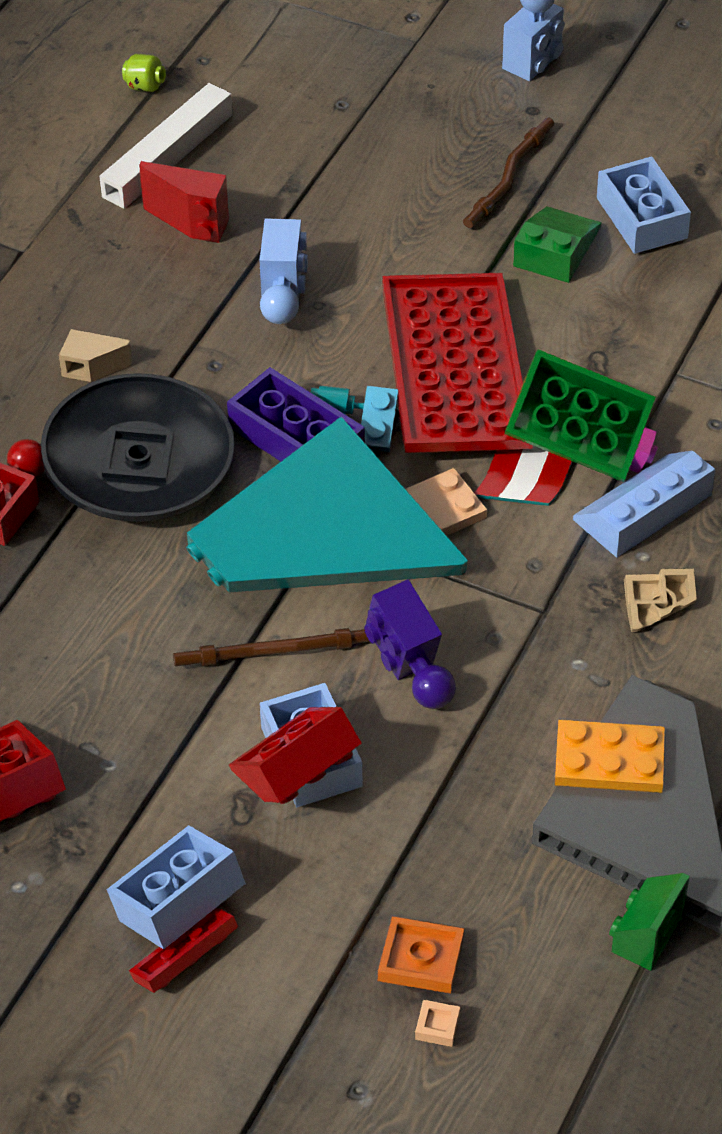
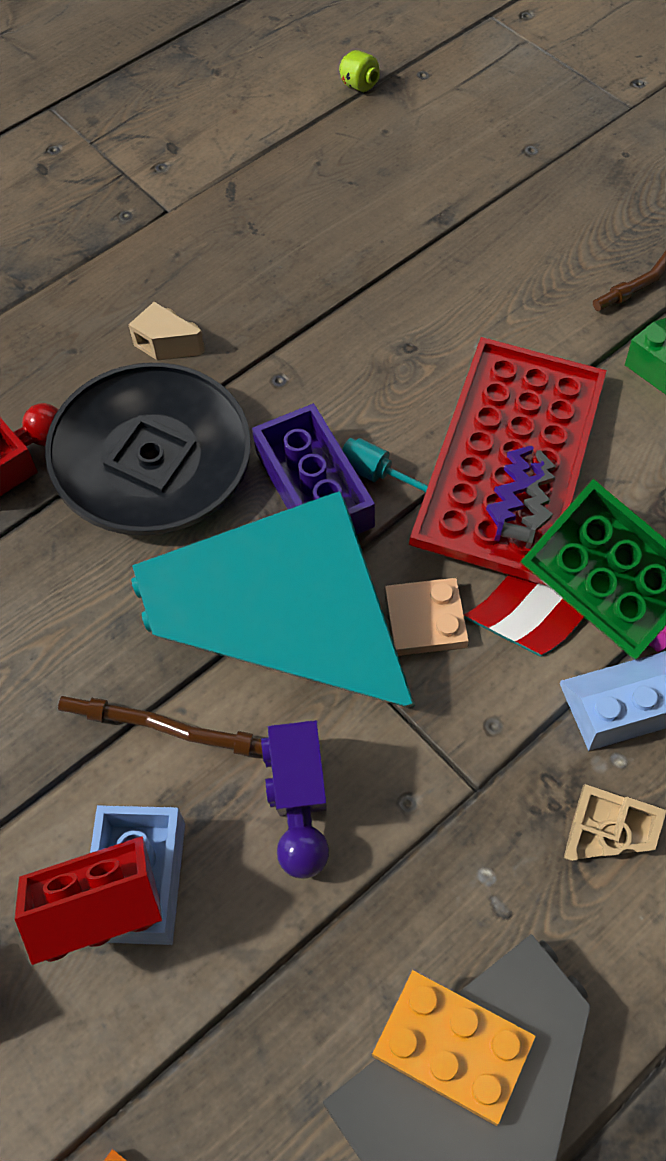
camera: 25 degrees right, 10 degrees up
(167, 143) = (344, 144): white brick -> none
(186, 199) = (332, 203): red slope -> none
(282, 269) = (382, 300): light blue brick -> none
(379, 417) = (403, 494): medium azure plate -> none
(473, 399) = (502, 511): none -> piece

